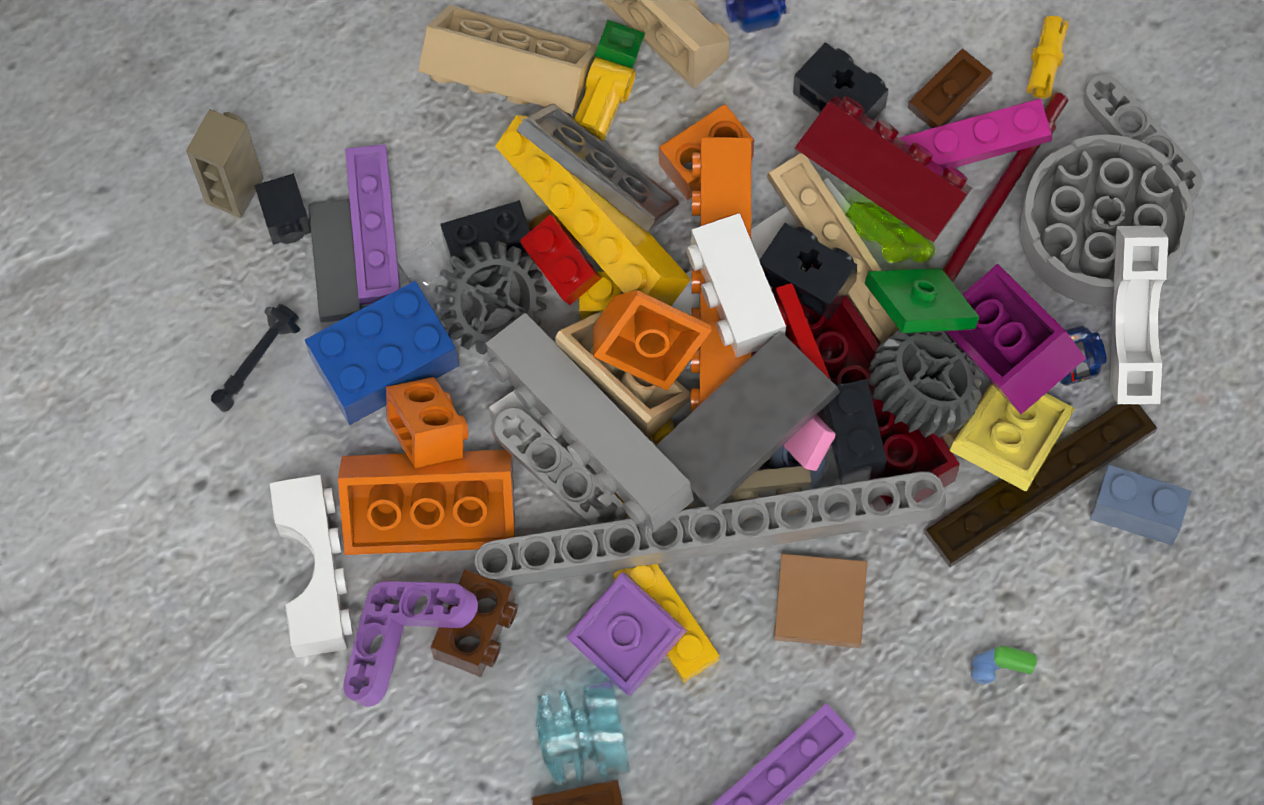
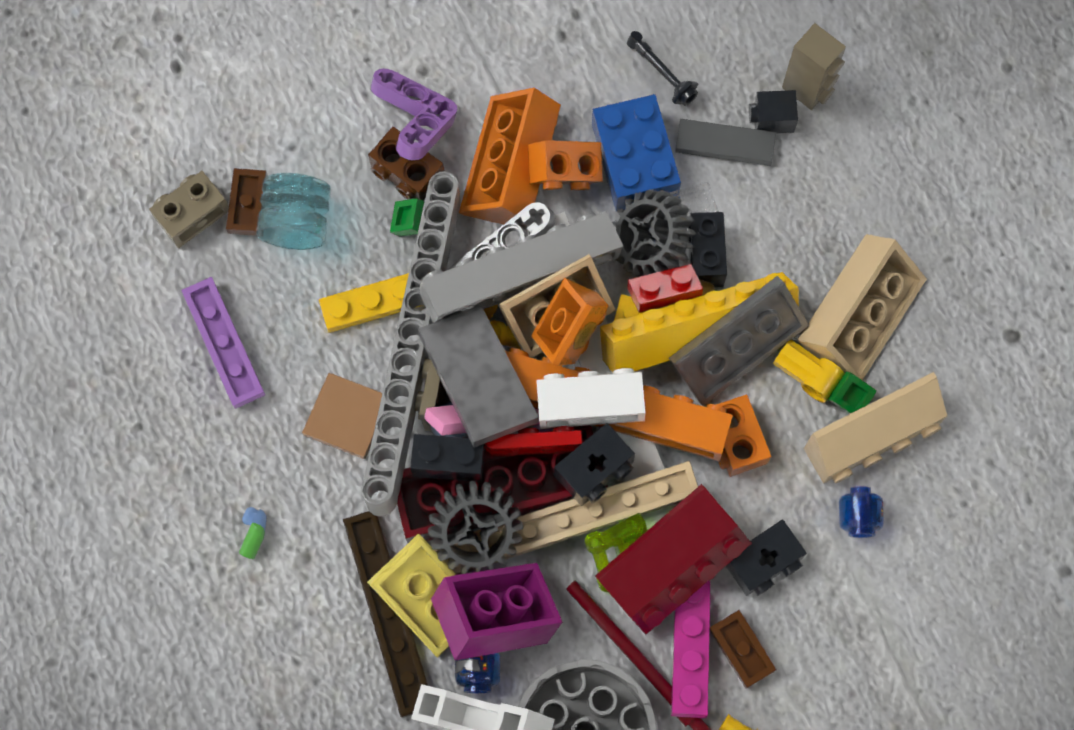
camera: 105 degrees right, 5 degrees up
(316, 615) = (446, 65): white arch -> none
(372, 222) = (747, 173): medium lavender plate -> none
(543, 600) = (406, 217): none -> green plate
(626, 634) = (363, 267): medium lavender tile -> none
(921, 300) = (545, 548): green plate -> none
(1140, 505) = (338, 677): sand blue brick -> none

